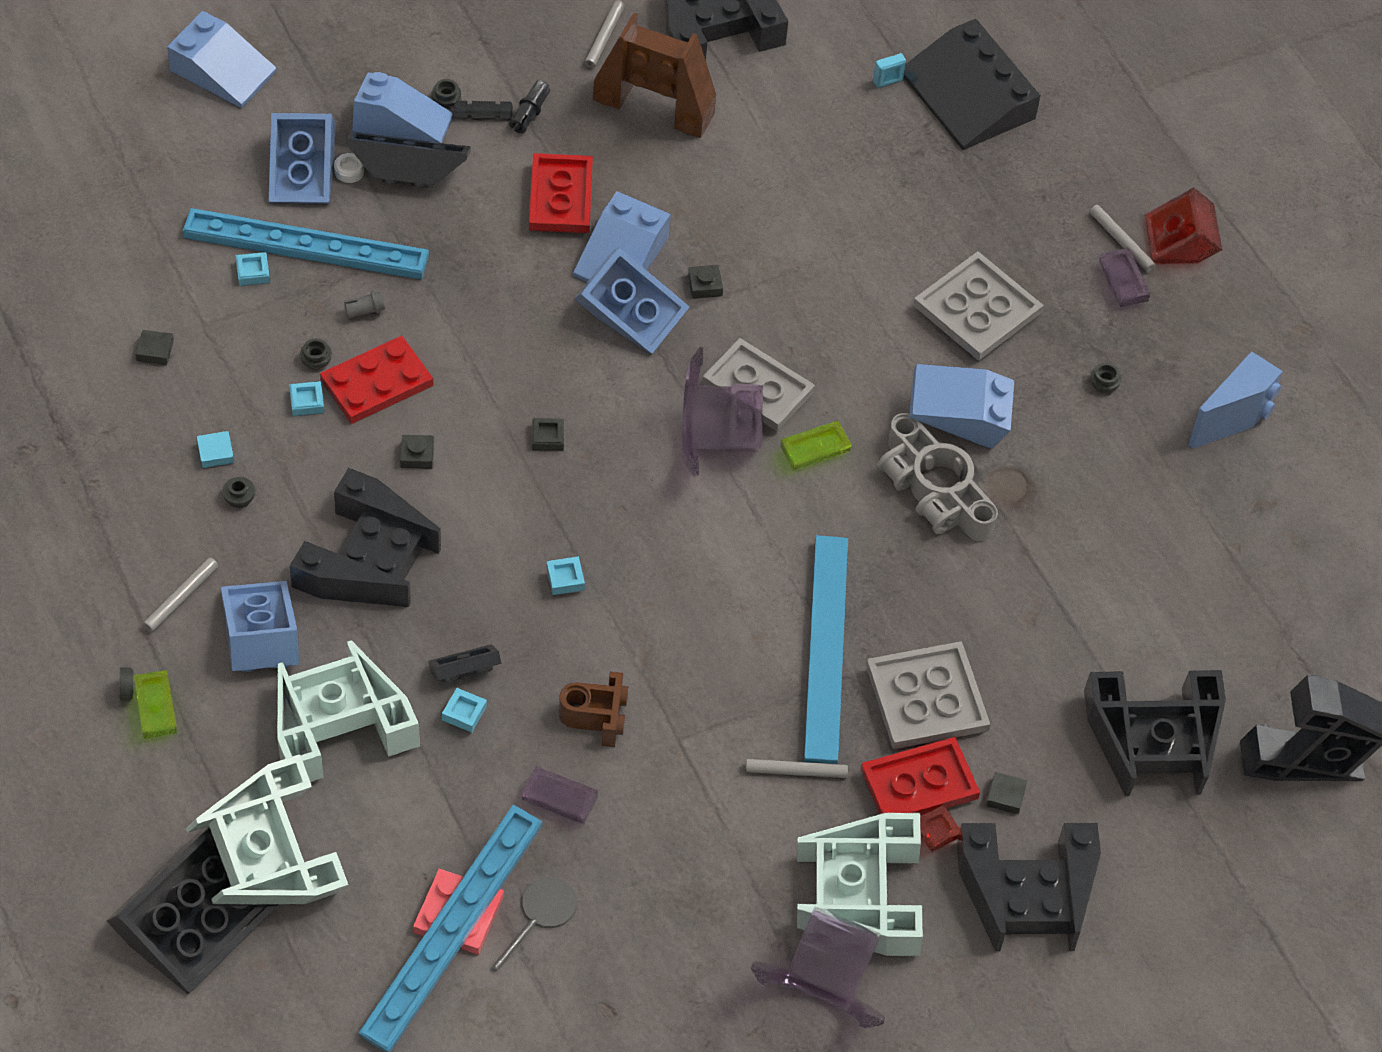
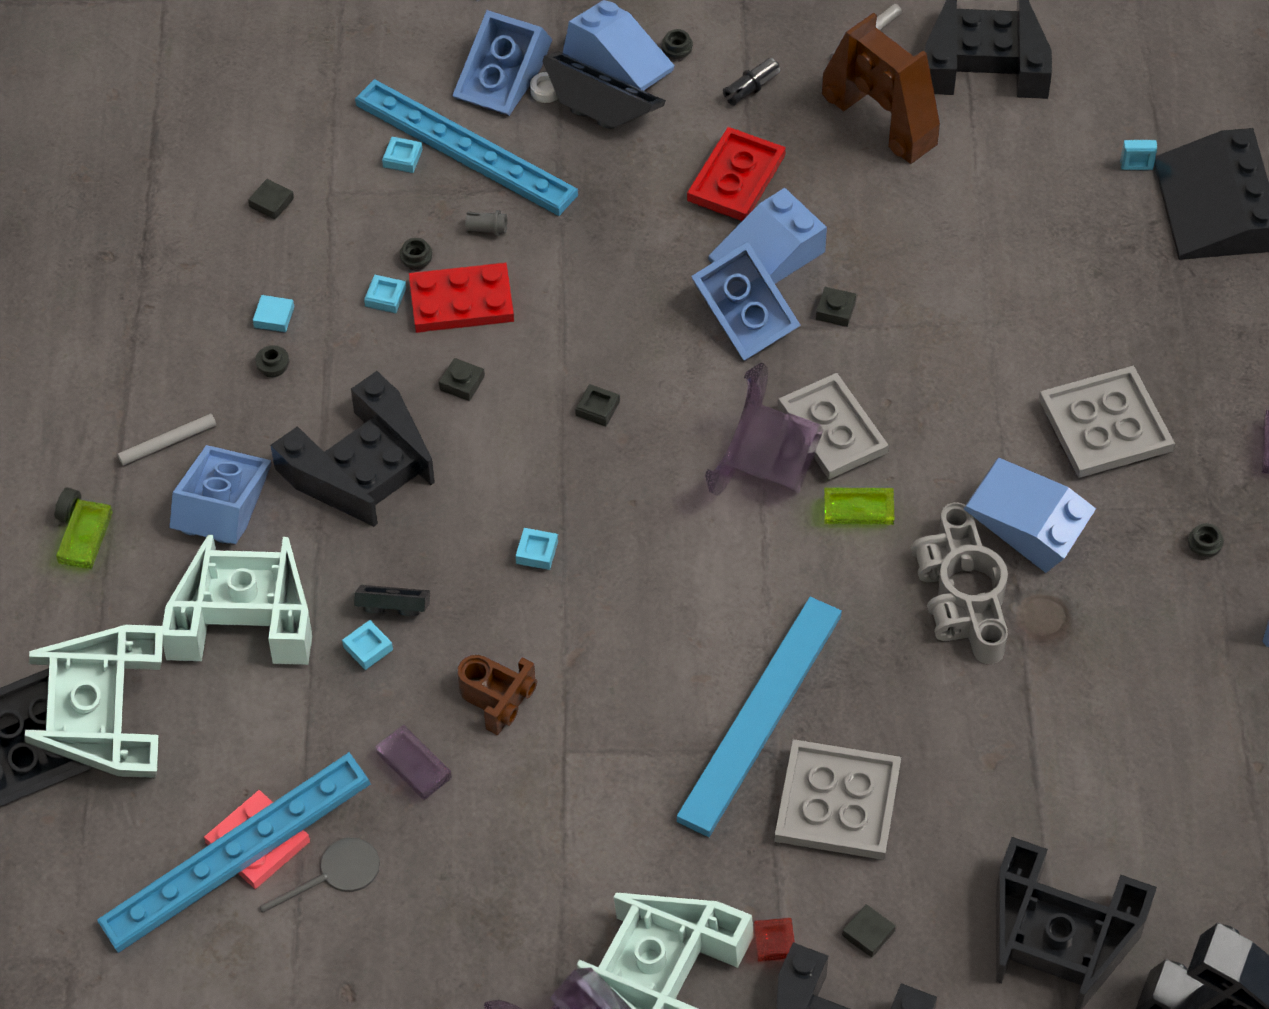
camera: 30 degrees right, 0 degrees up
(483, 109) = (705, 70): black axle -> none
(796, 768) = (665, 824): light grey piece -> none
(921, 779) = (784, 883): red plate -> none

